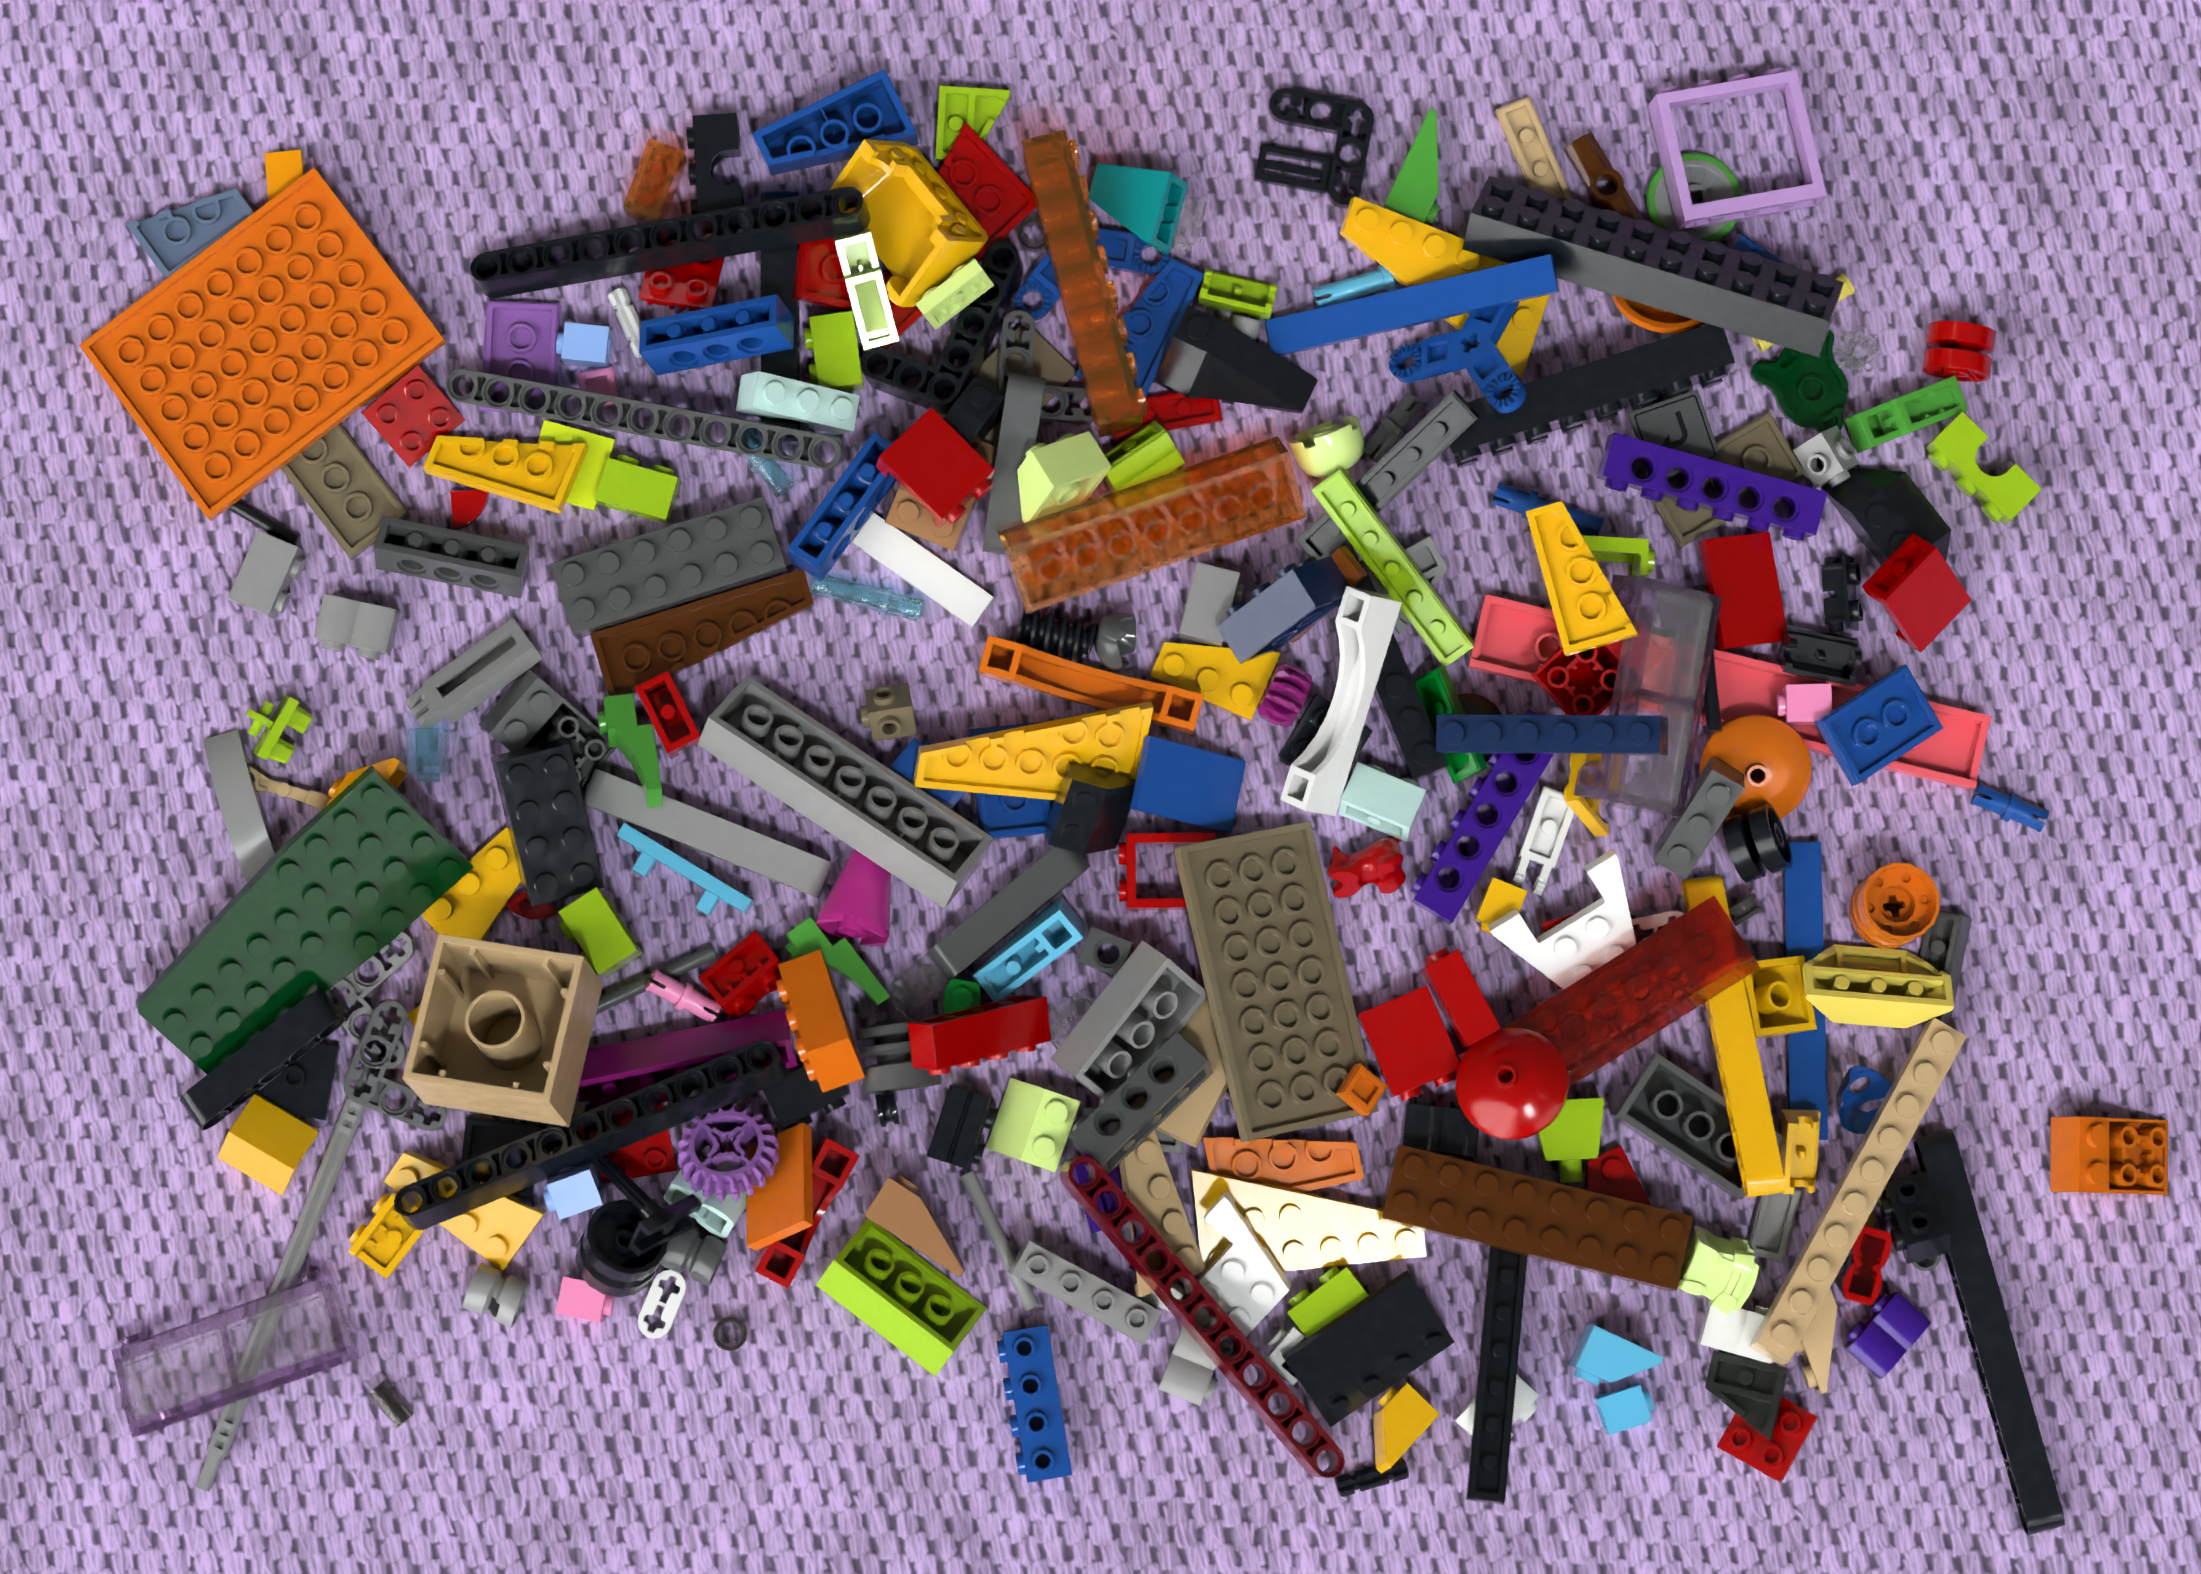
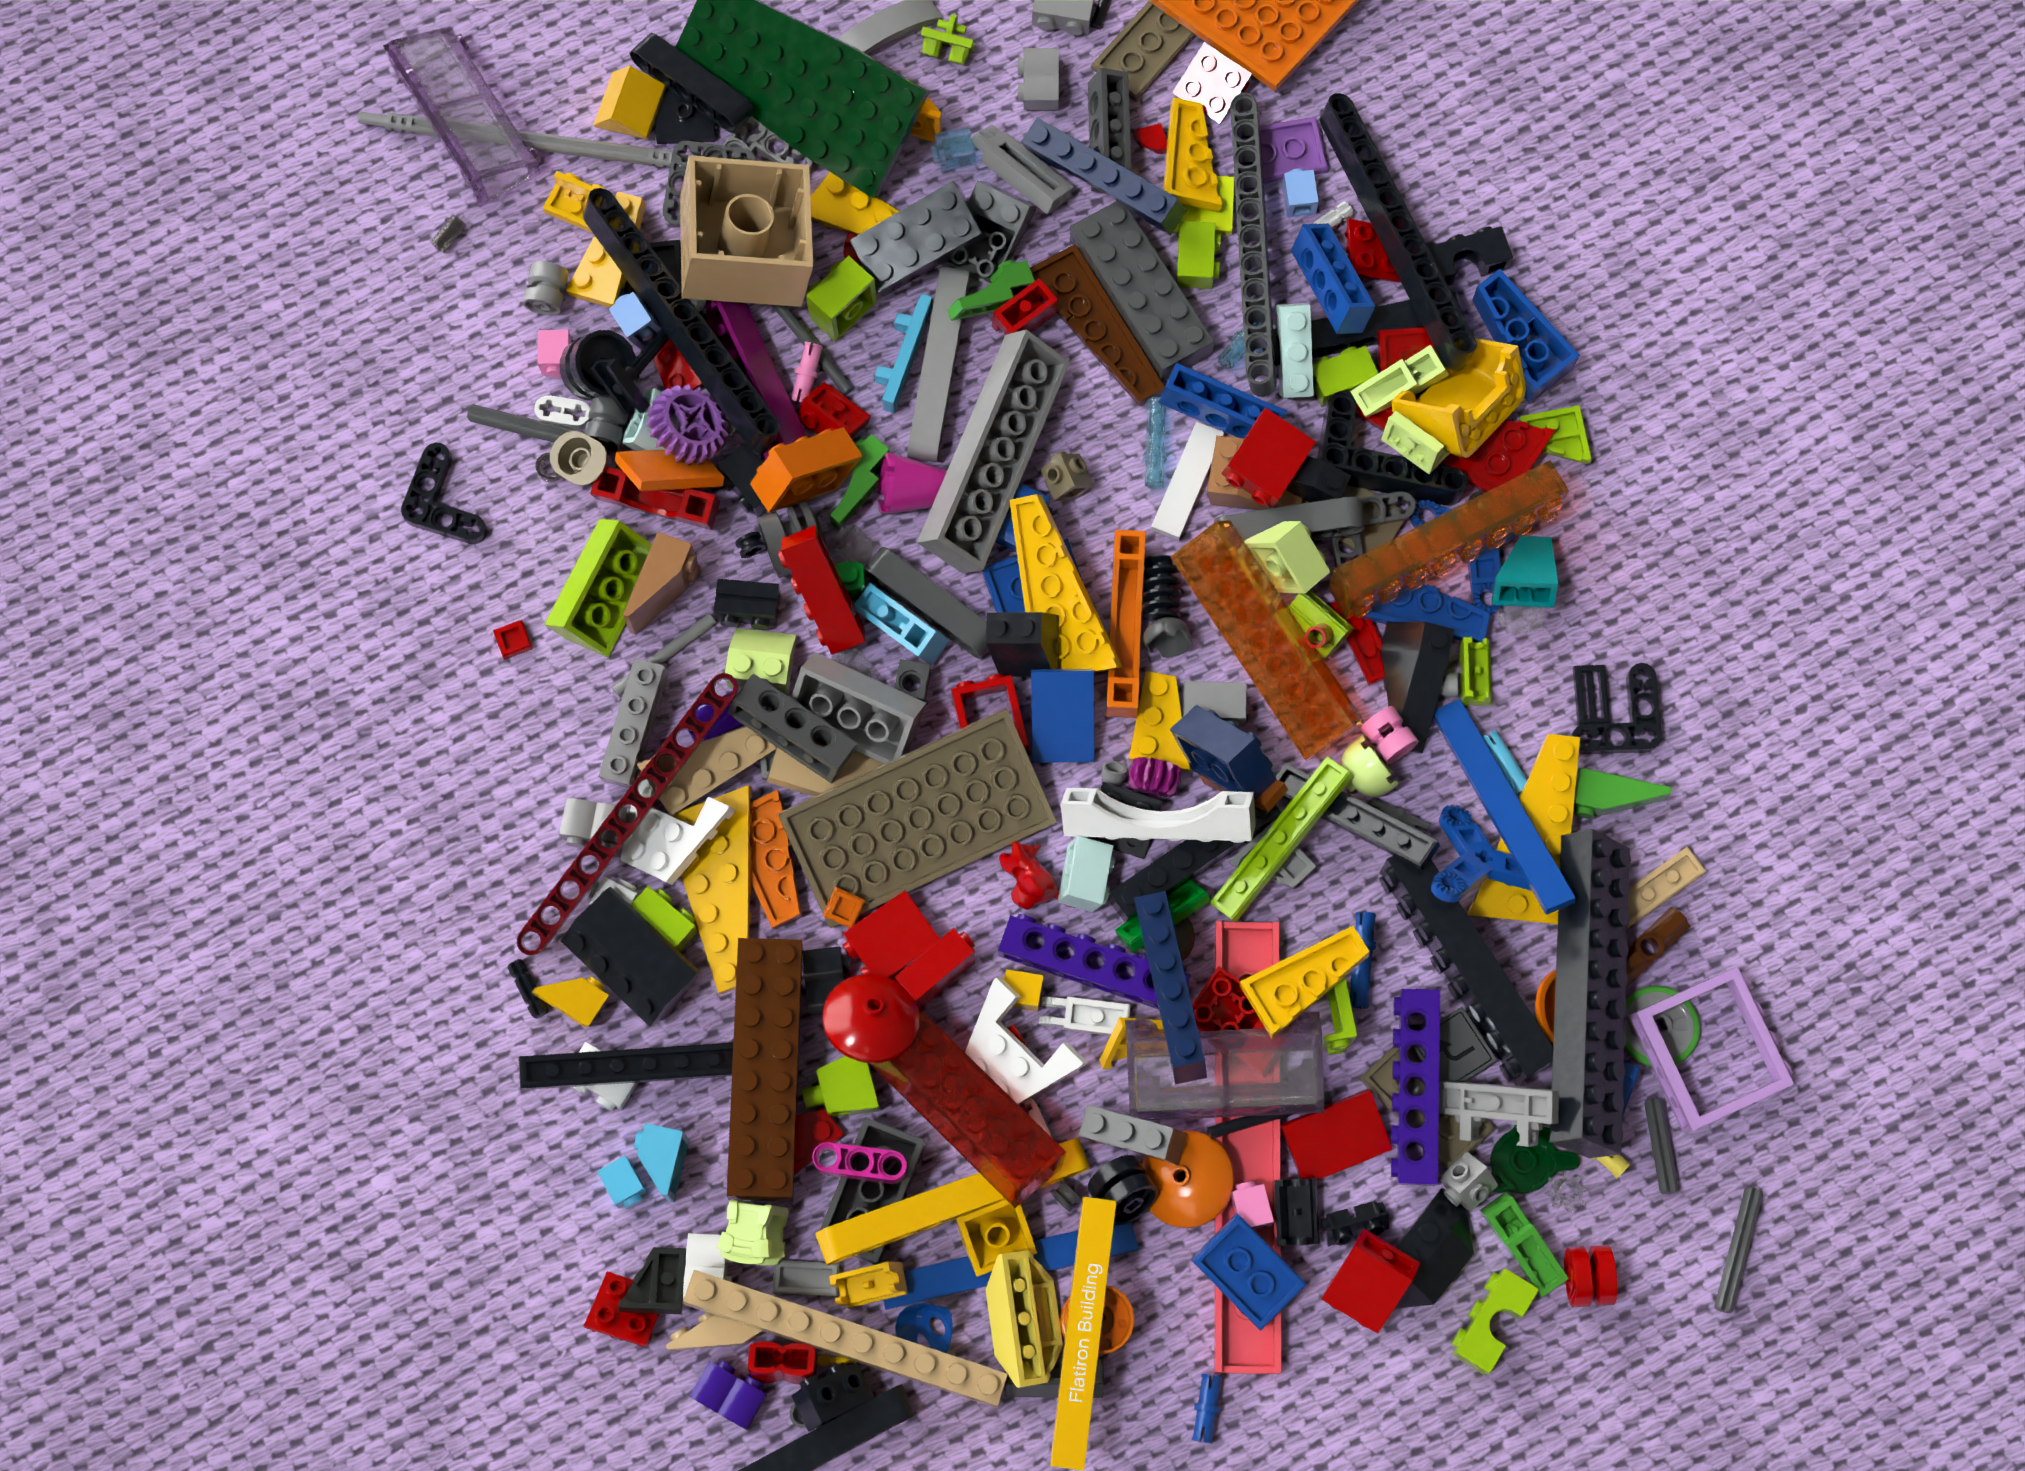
camera: 80 degrees right, 10 degrees down
(284, 790) = (904, 43): tan piece -> none
(517, 578) = (1121, 184): none -> dark blue arch
(599, 381) = (1275, 211): bright pink tile -> none
(655, 182) = (1442, 211): clear orange brick -> none
(669, 1353) = (516, 423): none -> dark grey axle
(737, 1294) = (578, 458): none -> piece
(751, 1488) = (432, 509): none -> black beam
(939, 1418) = (512, 639): none -> red tile
(1036, 1404) = (537, 708): blue brick -> none
(1170, 470) = (1326, 632): none -> red hinge
(1265, 741) = (1113, 772): none -> light grey hinge
(1309, 408) = (1394, 744): none -> bright pink wheel
(1686, 1117) = (845, 1155): none -> dark pink beam
(1746, 423) = (1476, 1102): none -> light grey hinge
(1827, 233) = (1661, 1146): none -> dark grey axle
(1914, 922) = (1083, 1334): none -> yellow tile
(1959, 181) = (1738, 1250): none -> dark grey axle

